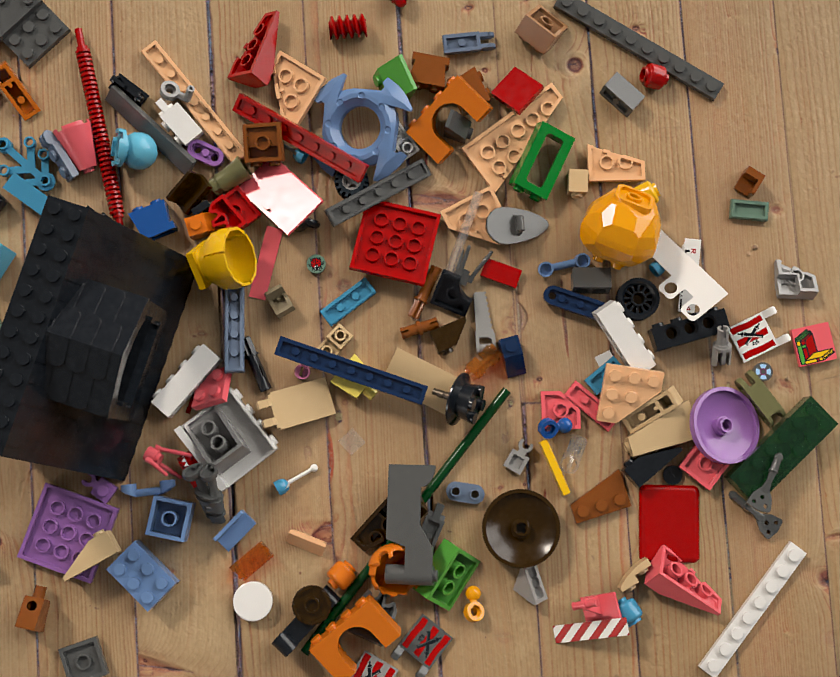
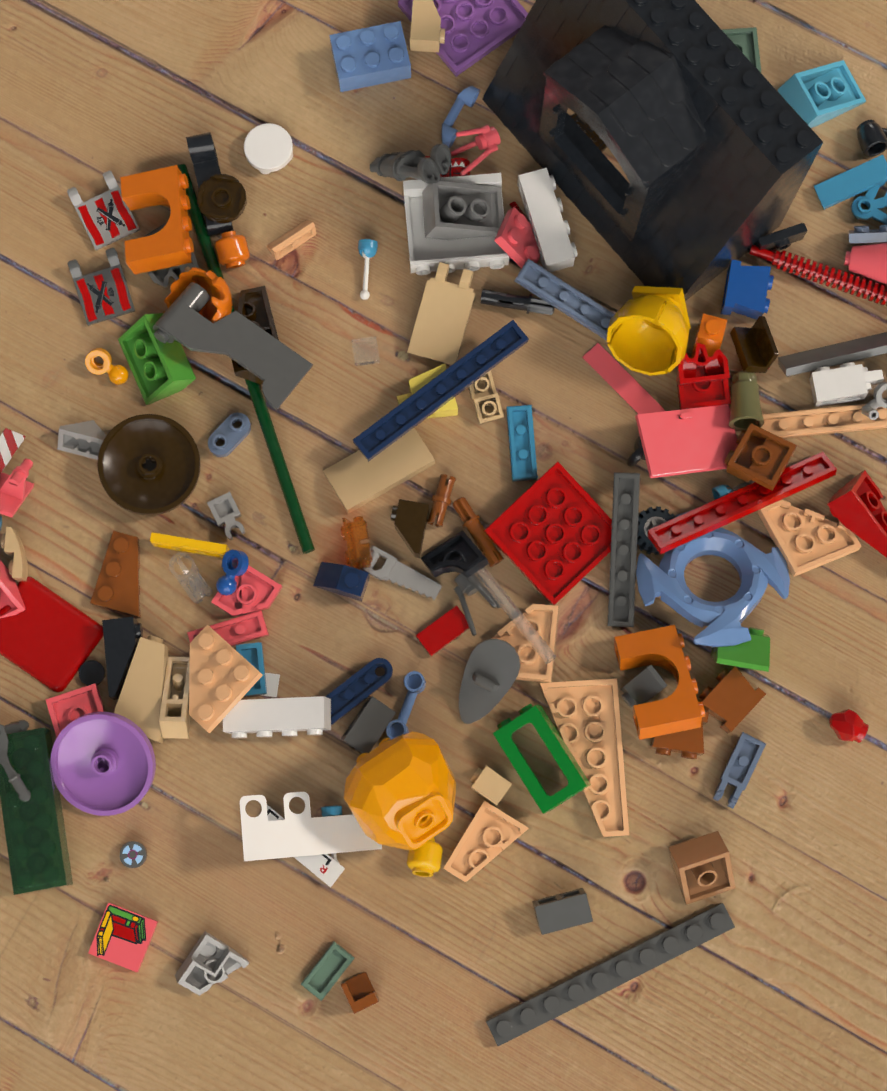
camera: 130 degrees right, 5 degrees down
(102, 488) = (485, 70): medium lavender plate -> none
(135, 150) = (839, 316): medium azure tile -> none
(170, 518) = (410, 115): medium blue brick -> none
(201, 208) = (727, 347): black tile -> none
(206, 153) = (788, 394): medium lavender plate -> none
(235, 530) = (354, 175): medium blue panel -> none
(252, 561) = (310, 171): clear orange hinge -> none
(279, 301) = (569, 368): dark tan bracket -> none
(306, 371) = (478, 338): bright pink hinge -> none
(316, 264) = (586, 435): tile -> none
(347, 26) = (842, 640): red piece -> none
(405, 143) = (663, 615): white slope -> none
(434, 523) = (215, 374): dark grey hinge -> none
(463, 400) = (328, 487): black piece -> none
(517, 90) = (644, 787): red tile -> none
(652, 291) = (302, 743): black wheel -> none
(654, 76) = (559, 964): red head -> none
(661, 342) = (242, 758): black brick -> none
(721, 347) = (192, 822): light grey arm -> none
(754, 336) = (178, 873): flag -> none
(760, 397) = (105, 828): olive piece -> none

